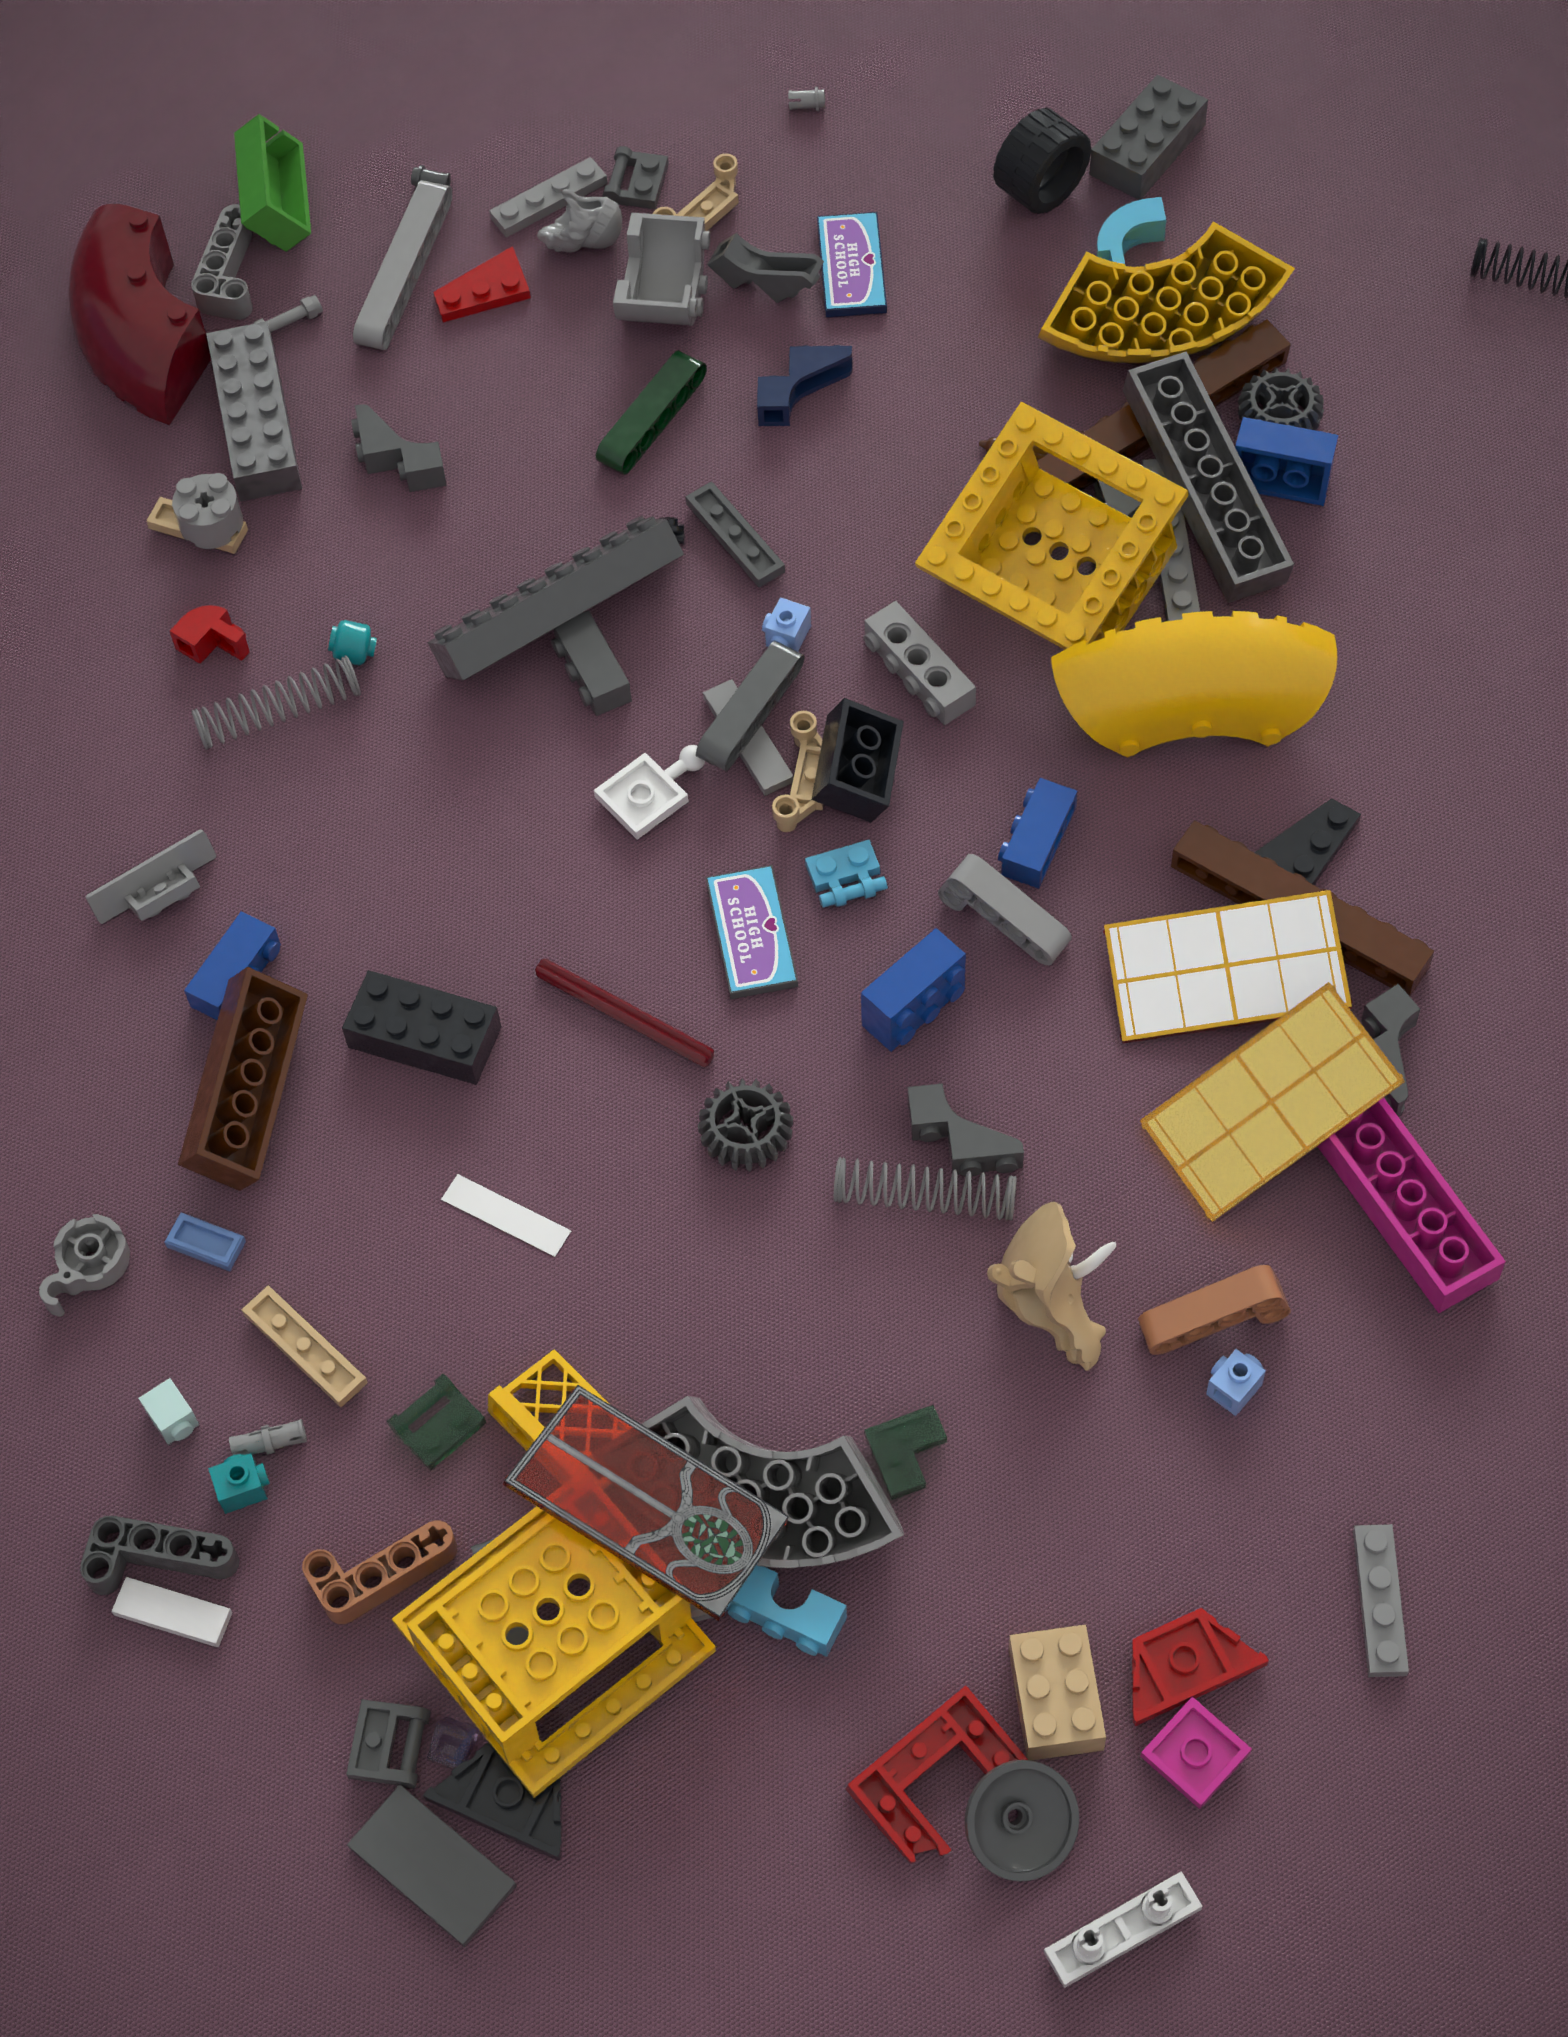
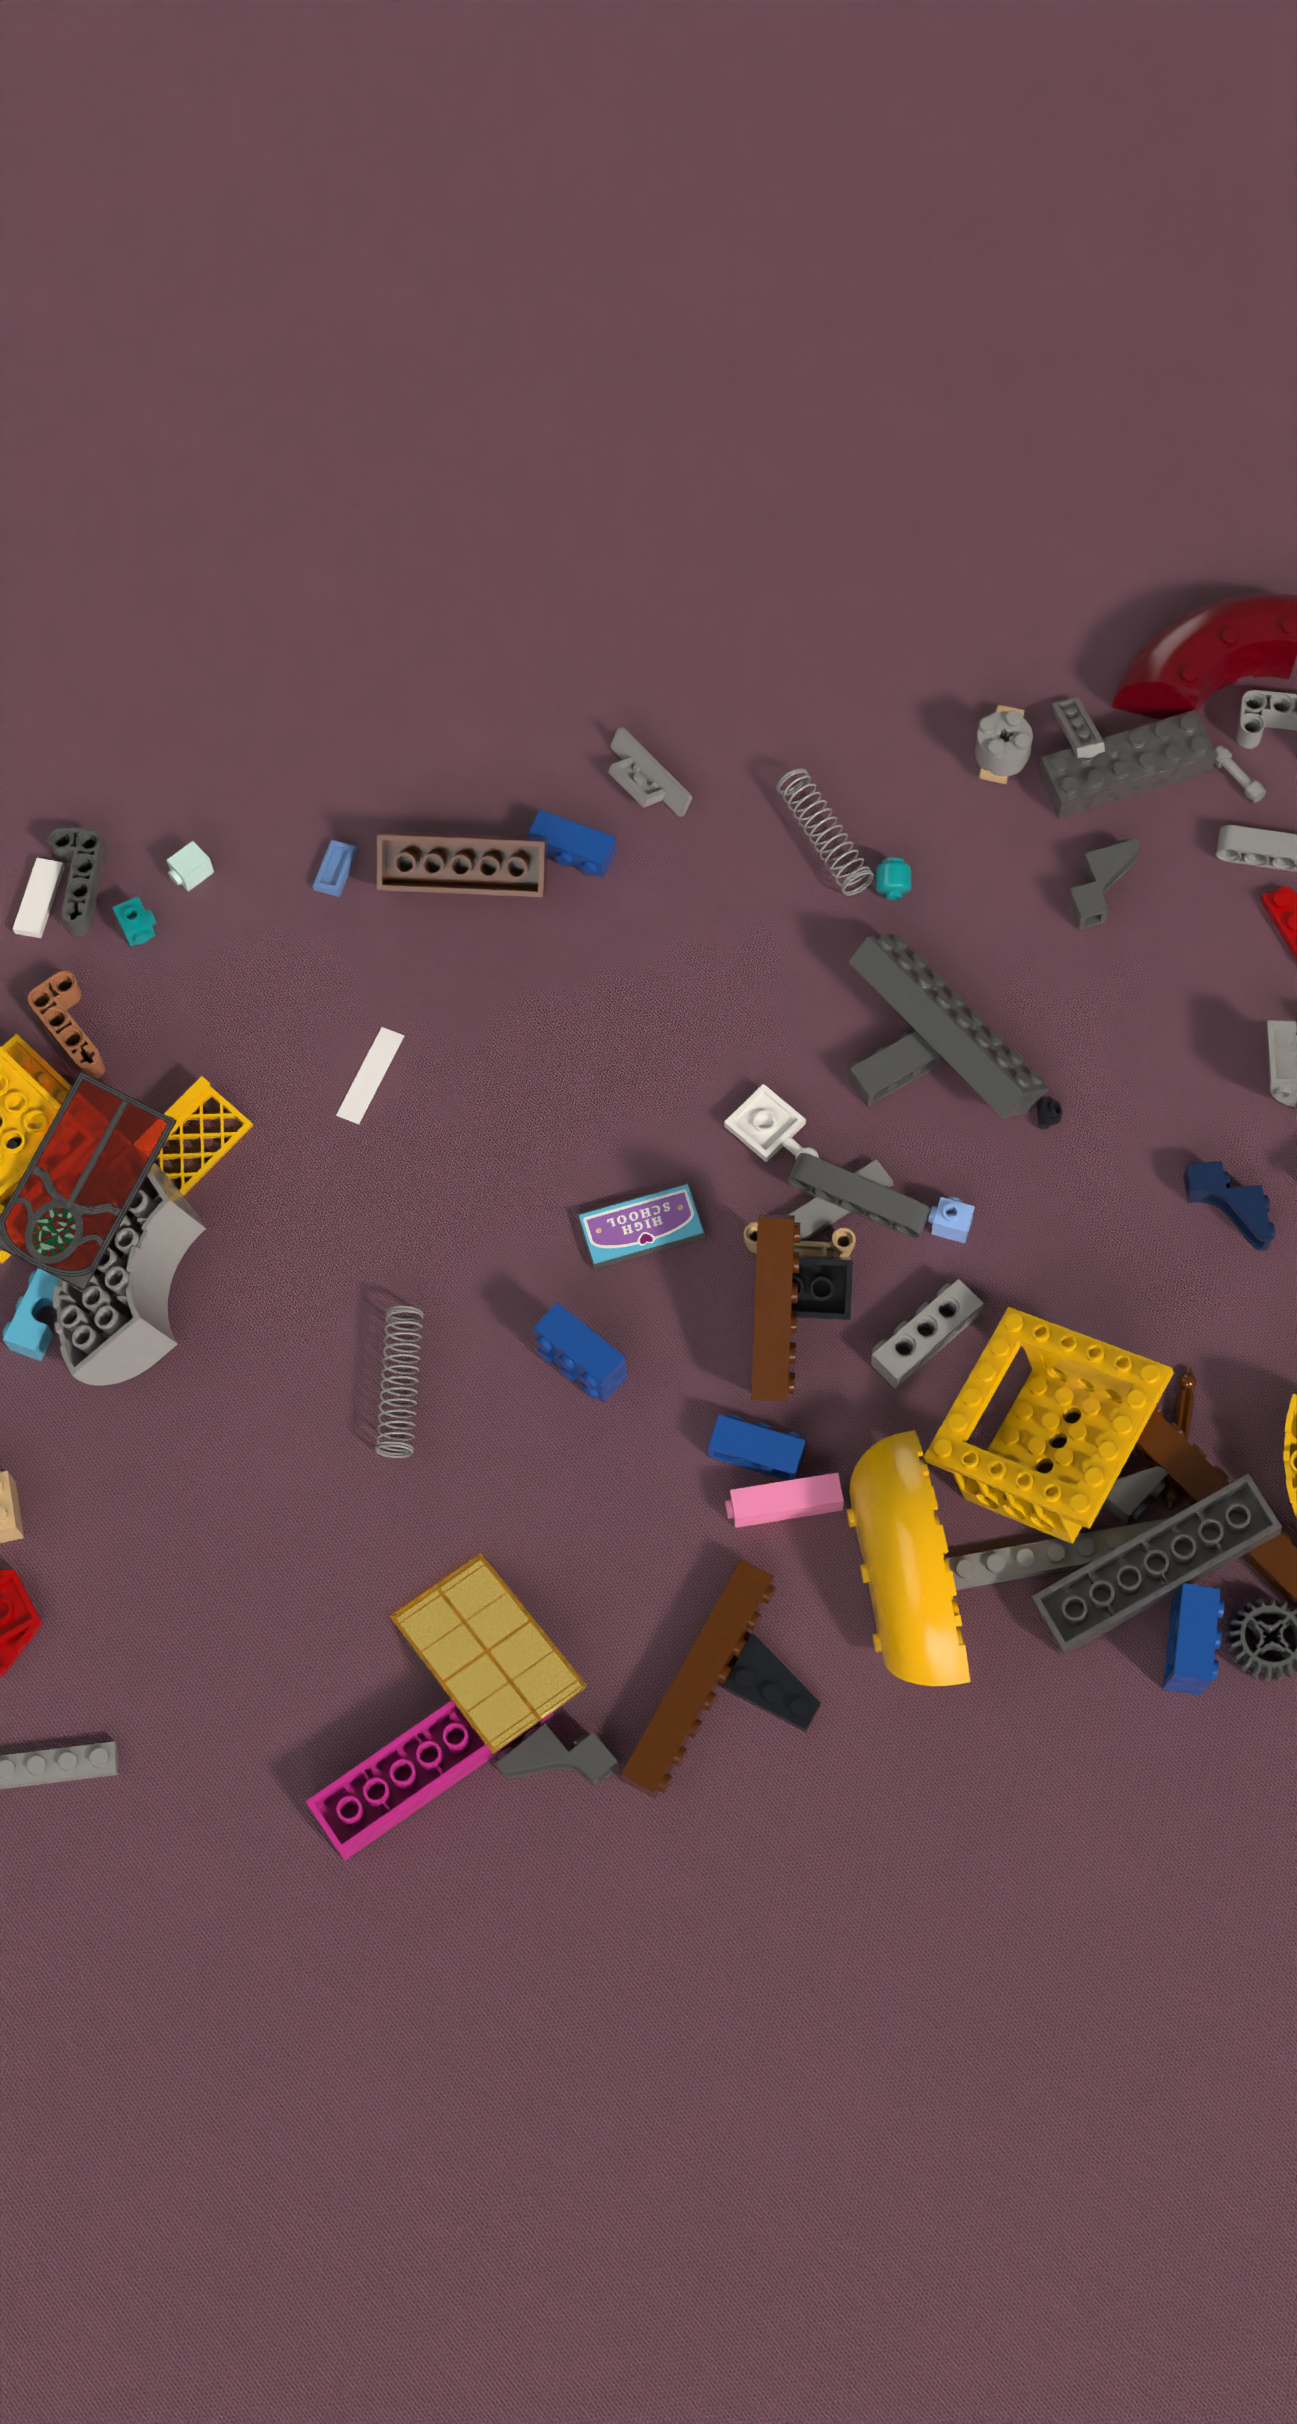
camera: 85 degrees right, 5 degrees up
(85, 1272) = (304, 786): light grey piece -> none
(204, 438) = (1078, 728): none -> light grey plate
(206, 629) = (892, 768): red brick -> none
(268, 1438) = (172, 937): light grey pin -> none
(304, 1346) = (247, 948): tan plate -> none
(422, 1027) = (525, 986): black brick -> none
(444, 1430) = (184, 1056): clear green plate -> none
(625, 1012) = (555, 1137): dark red axle -> none
(651, 412) = (1177, 1081): dark green beam -> none
(735, 534) = (1050, 1166): dark grey plate -> none
(767, 1110) = (471, 1225): dark grey gear -> none
(845, 866) = (712, 1292): medium azure plate -> none
(893, 773) = (772, 1309): none -> reddish brown brick
(897, 1442) = (173, 1380): clear green plate -> none
(970, 1144) = (443, 1411): dark grey arch -> none
(1005, 908) = (669, 1423): light grey beam -> none
(1045, 1288) = (304, 1479): tan animal -> none
(1102, 810) = (785, 1500): none -> bright pink brick
(1215, 1308) = (297, 1621): nougat beam -> none
(1223, 965) = (629, 1615): white piece -> none
(1235, 1380) = (238, 1639): light blue brick -> none

